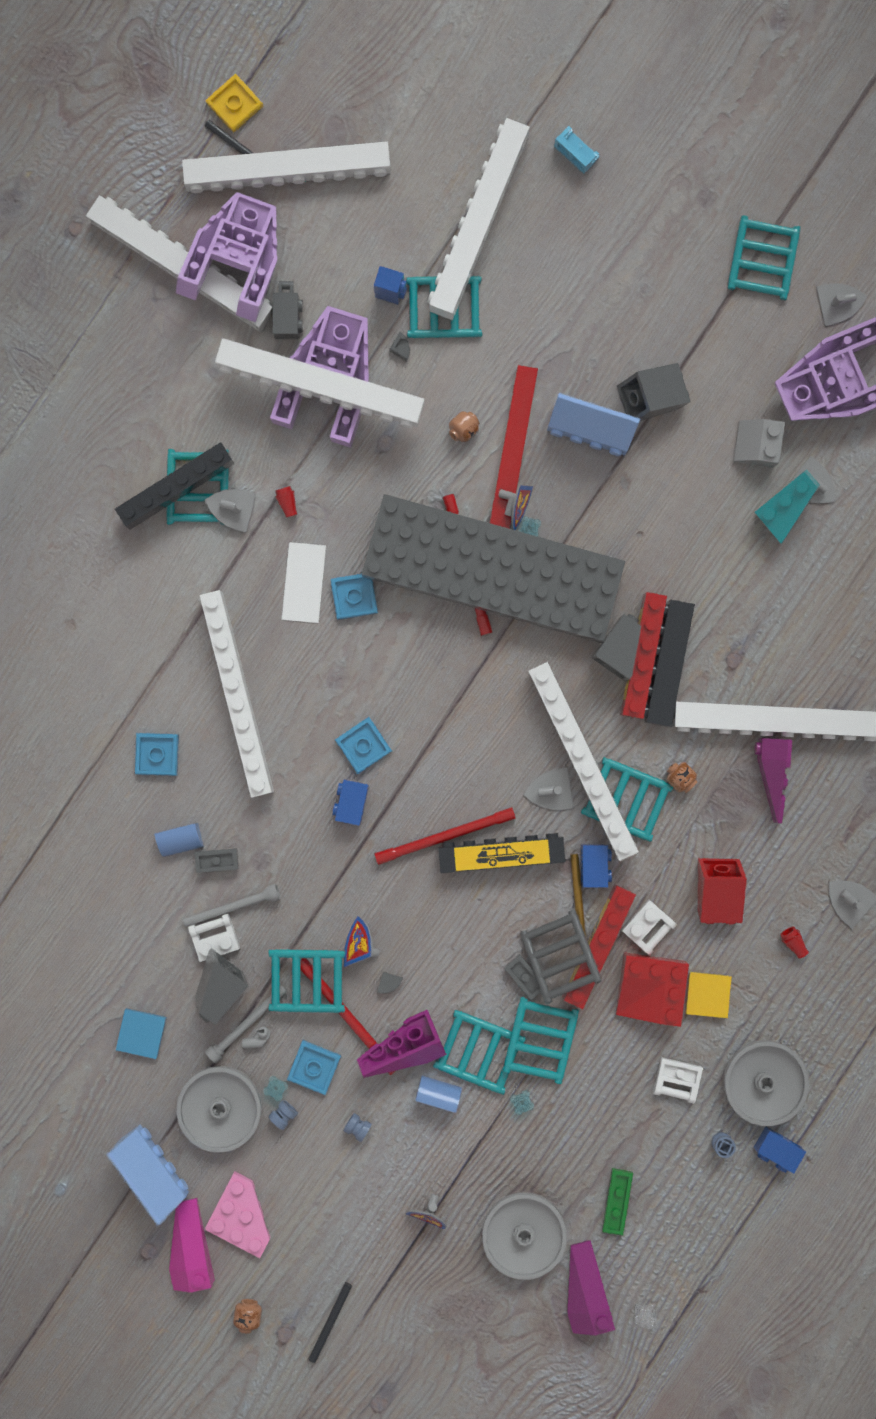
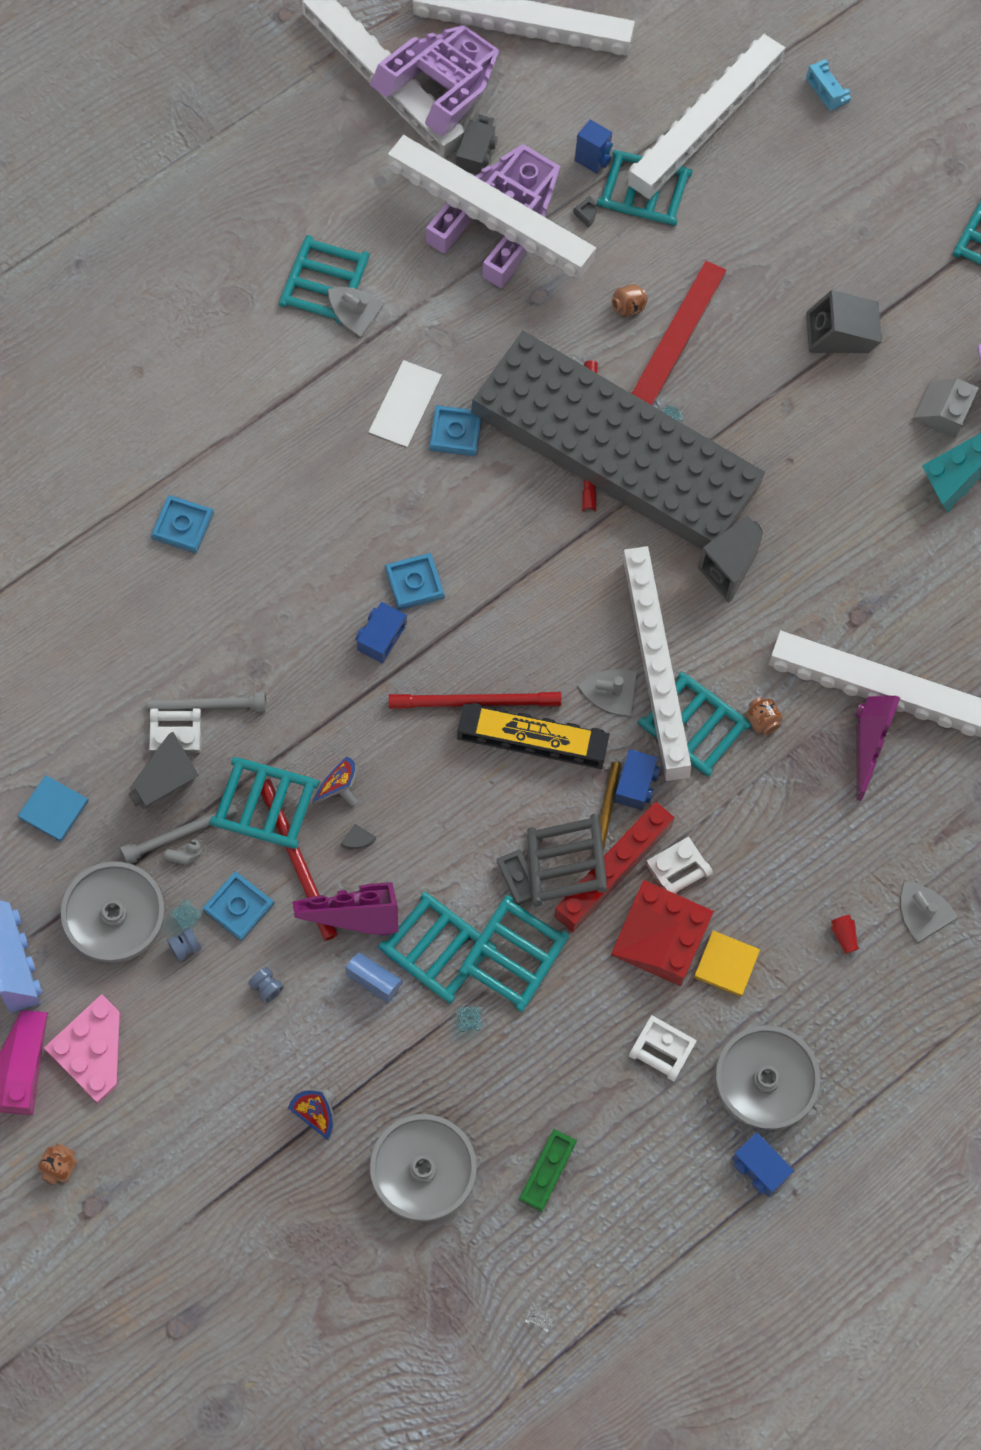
camera: 10 degrees right, 20 degrees down
(174, 486) = (301, 265): black brick -> none
(179, 840) = (174, 615): medium blue brick -> none
(216, 860) = (208, 649): dark grey plate -> none
(236, 693) = (293, 487): white brick -> none
(286, 500) = (415, 316): red cone -> none
(330, 1322) = (152, 1207): black bar -> none
(516, 503) = (665, 385): shield -> none
(587, 1299) = (475, 1275): magenta wedge -> none
(592, 425) = (769, 329): light blue slope -> none
(638, 686) = (756, 577): red brick -> none
(669, 663) = (783, 594): black brick -> none
(720, 1141) = (694, 1143): sand blue wheel -> none
(721, 891) = (773, 851): red slope -> none

